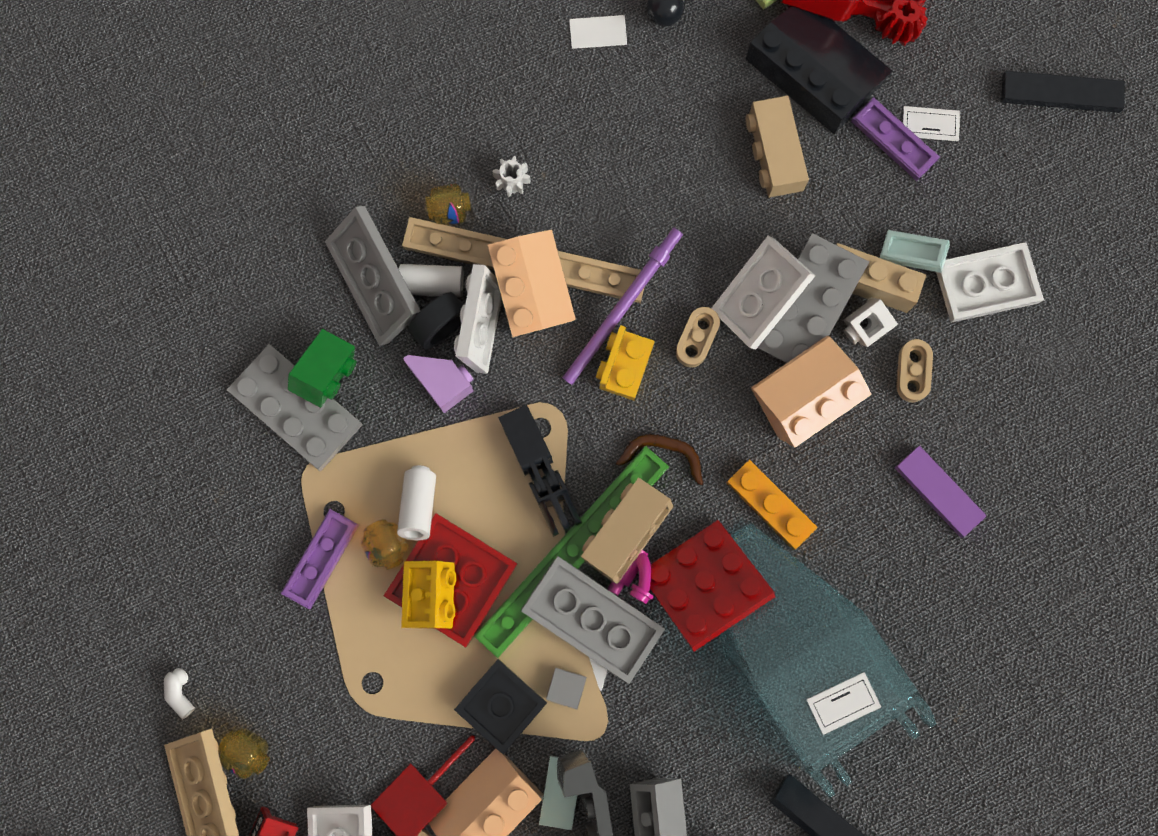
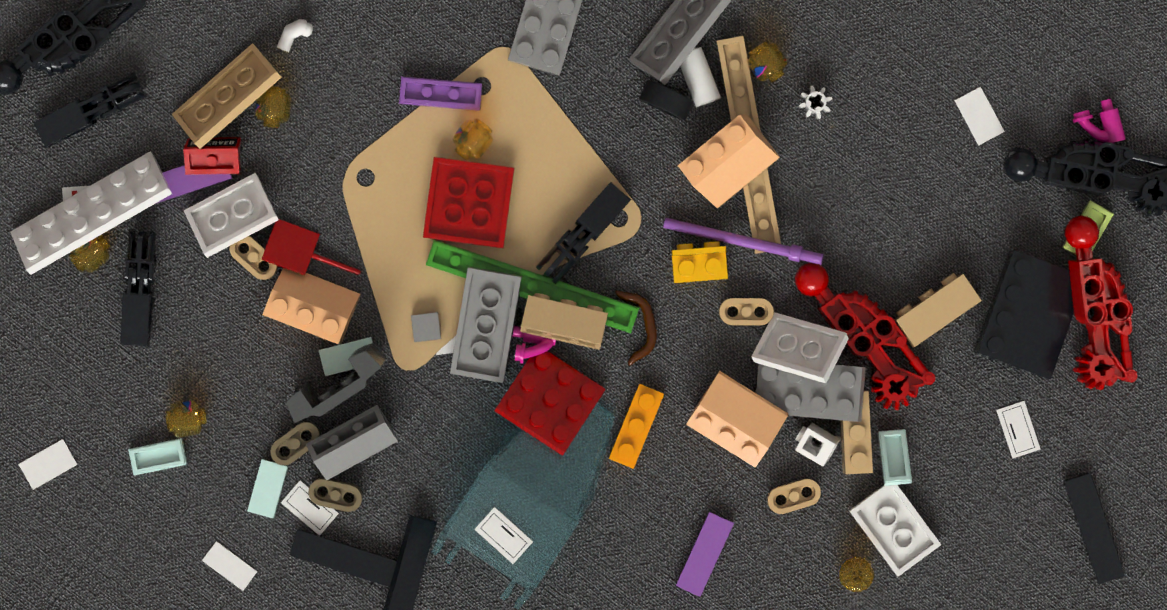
camera: 65 degrees right, 10 degrees up
(321, 368) = (587, 25): green brick -> none
(416, 503) = (514, 150): white brick -> none
(428, 594) = (449, 191): yellow bracket -> none
(441, 379) = (621, 123): lavender slope -> none
(478, 319) = (680, 132): white plate -> none
(500, 706) = (391, 283): black plate -> none
(758, 221) = (864, 315): none -> red arm
(895, 139) = (989, 404): medium lavender tile -> none
(1025, 340) = (856, 564): none -> clear yellow head

